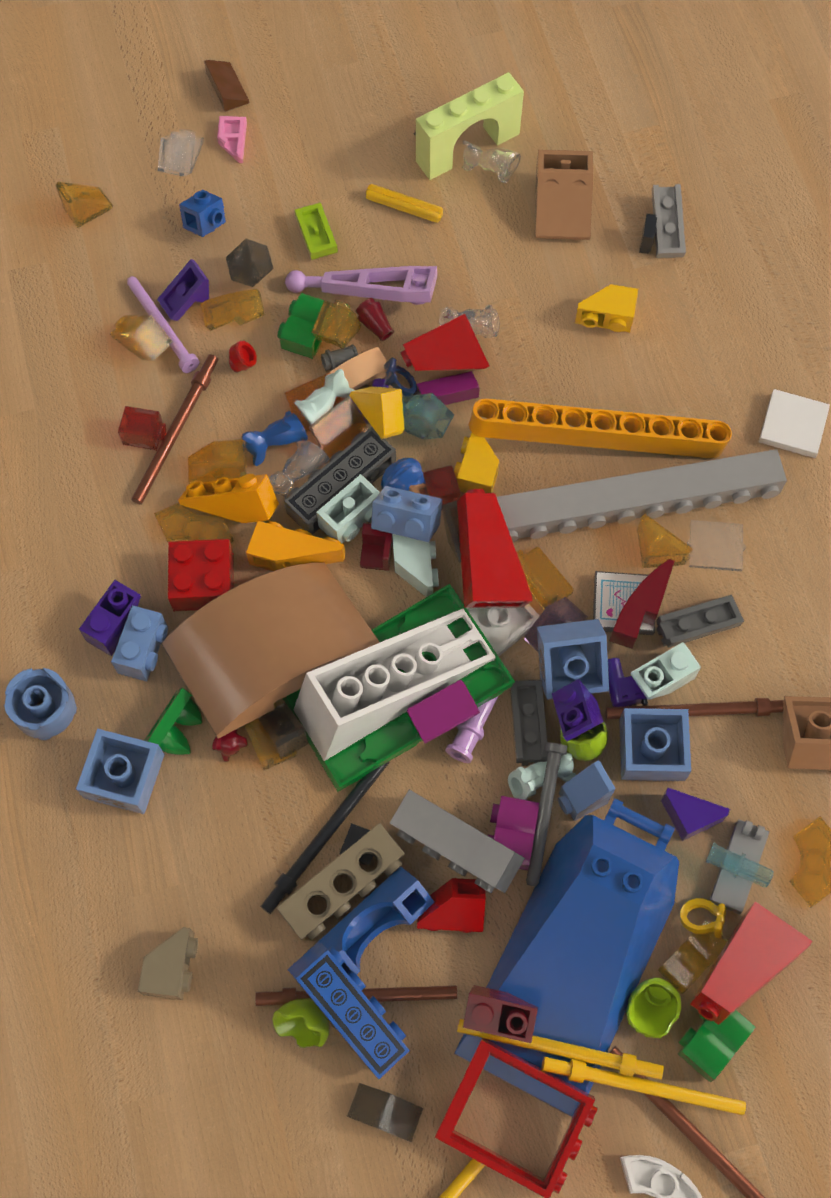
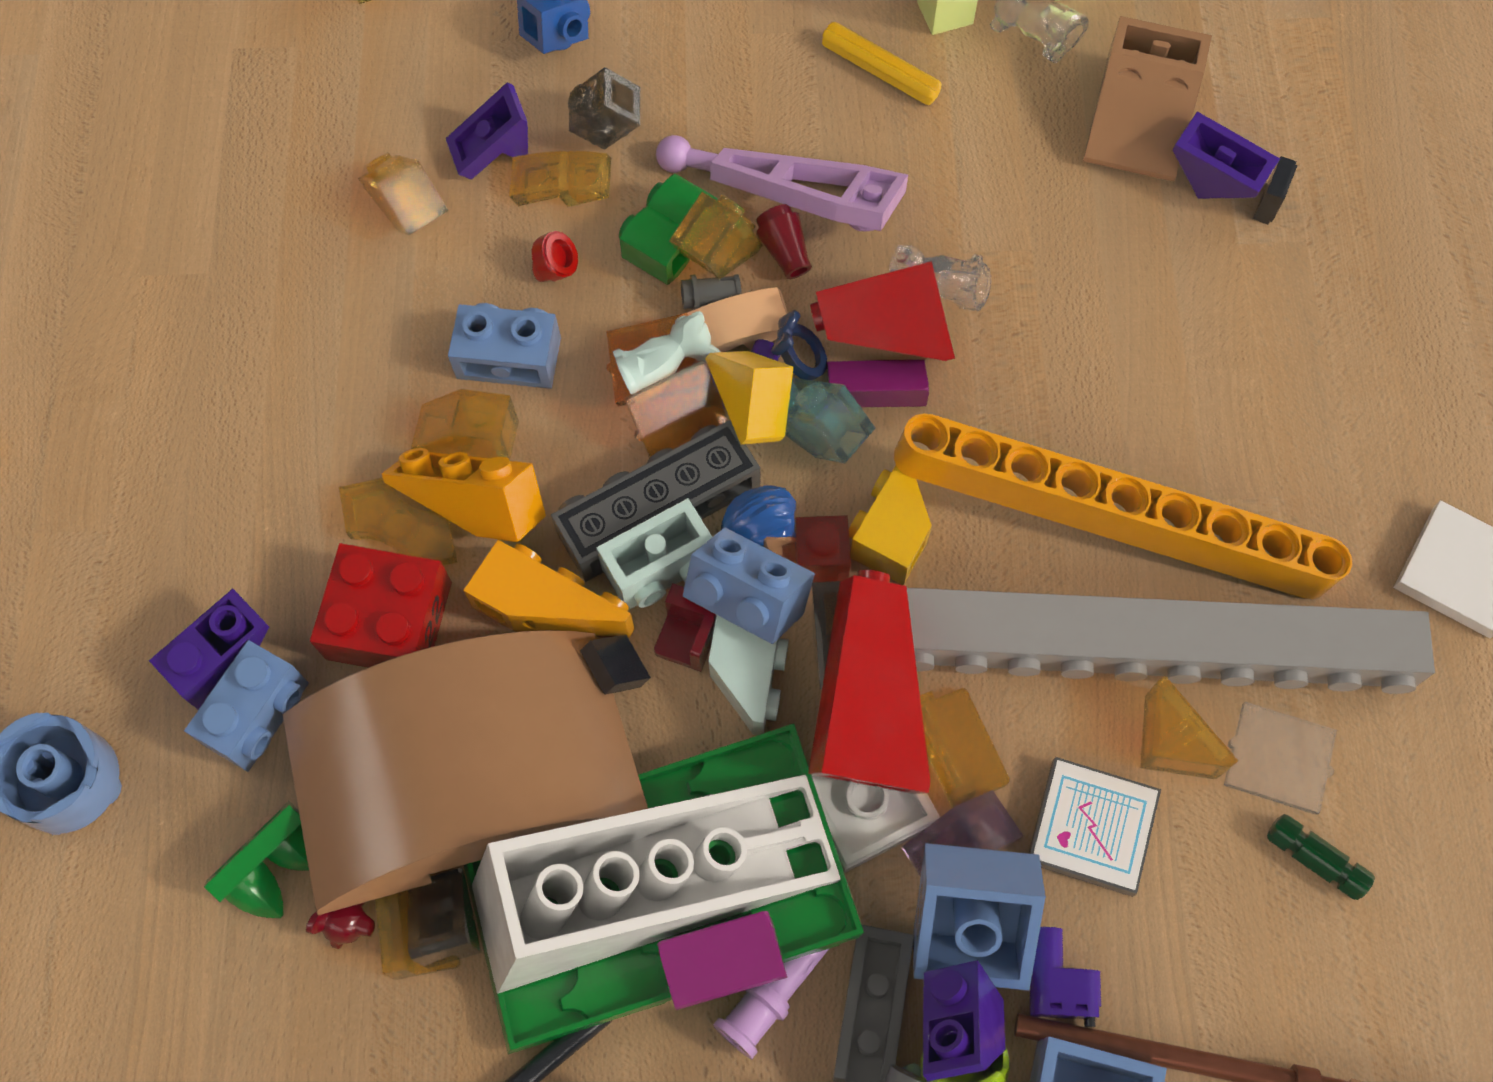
camera: 15 degrees right, 0 degrees up
(120, 771) = (144, 930): medium blue brick -> none
(141, 428) = (359, 341): clear red brick -> none
(187, 362) = (464, 249): lavender bar -> none
(199, 383) = (475, 286): copper bar -> none
(228, 412) = (505, 345): none -> medium blue brick
(280, 432) = (575, 397): blue animal -> none
(302, 463) = (595, 458): clear animal -> none
(316, 231) = (727, 79): lime plate -> none
(341, 575) = (615, 664): none -> black tile
(609, 309) = (1181, 303): yellow slope -> none
(614, 223) = (1221, 161): none -> dark purple slope
(642, 605) = (1125, 845): dark red slope -> none
(667, 672) = (1141, 979): light aqua slope -> none
(670, 224) = (1315, 186): light grey hinge -> none
(699, 621) = (1221, 893): dark grey hinge -> none
(747, 591) = (1321, 857): none -> dark green axle

